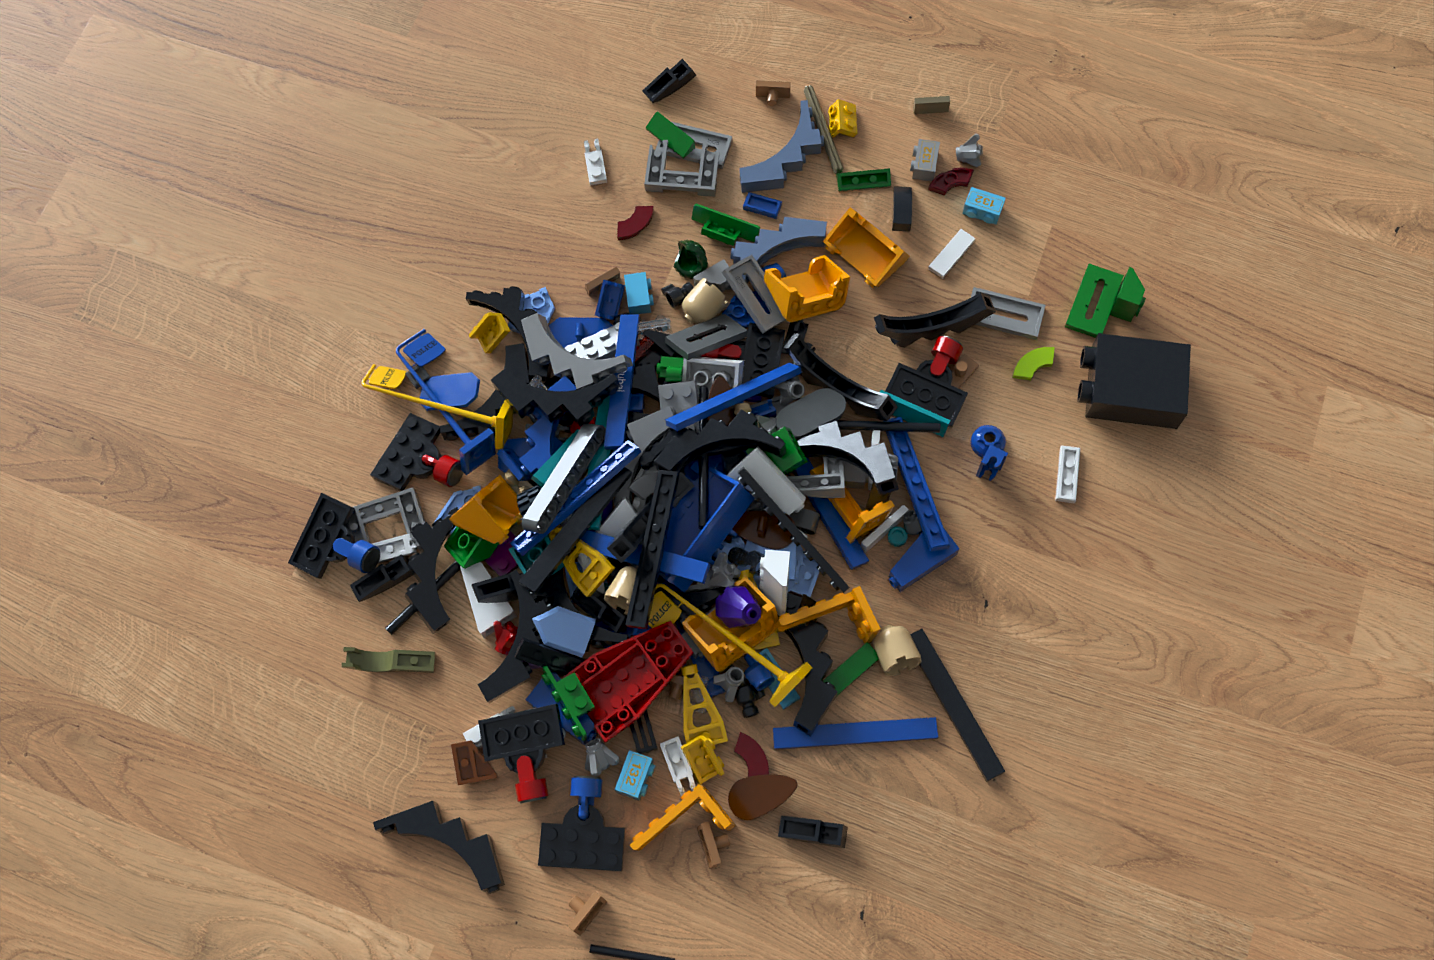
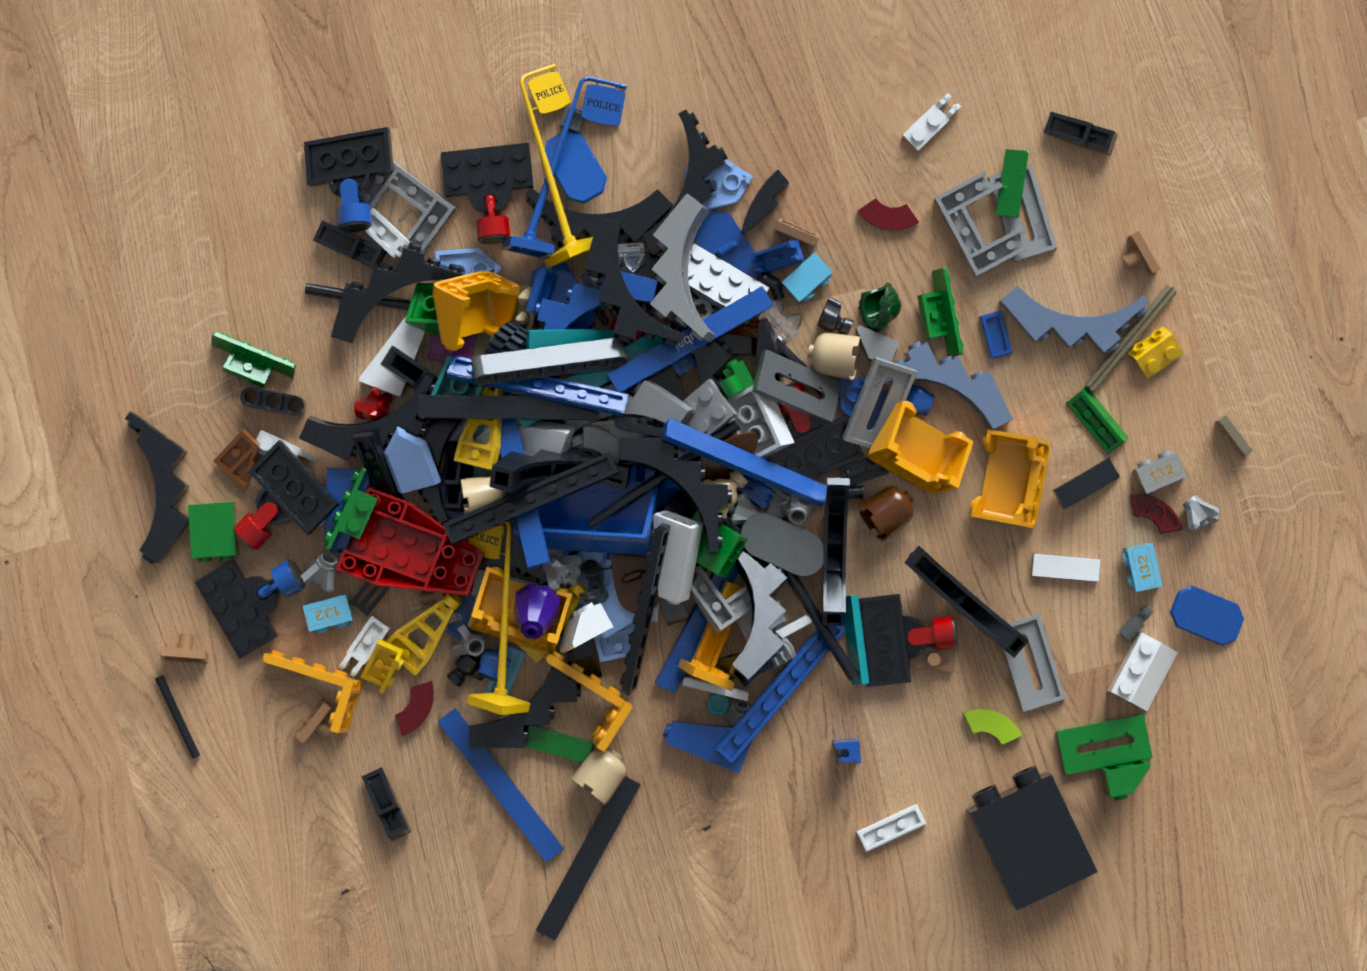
camera: 50 degrees right, 20 degrees up
(389, 661) = (280, 312): olive piece -> none
(407, 706) = (249, 362): none -> green bracket
(438, 711) = (263, 397): none -> black beam
(490, 331) = (664, 162): yellow bracket -> none
(509, 822) = (213, 531): none -> green brick
(566, 287) = (764, 200): none -> black slope
(760, 794) = (386, 737): reddish brown shield -> none
(835, 337) = (887, 511): none -> reddish brown cylinder
(980, 445) = (867, 721): blue piece -> none
(1020, 233) = (1135, 623): none -> dark grey bar
(1044, 185) = (1206, 615): none -> blue shield
(1055, 247) = (1142, 671): none -> white slope

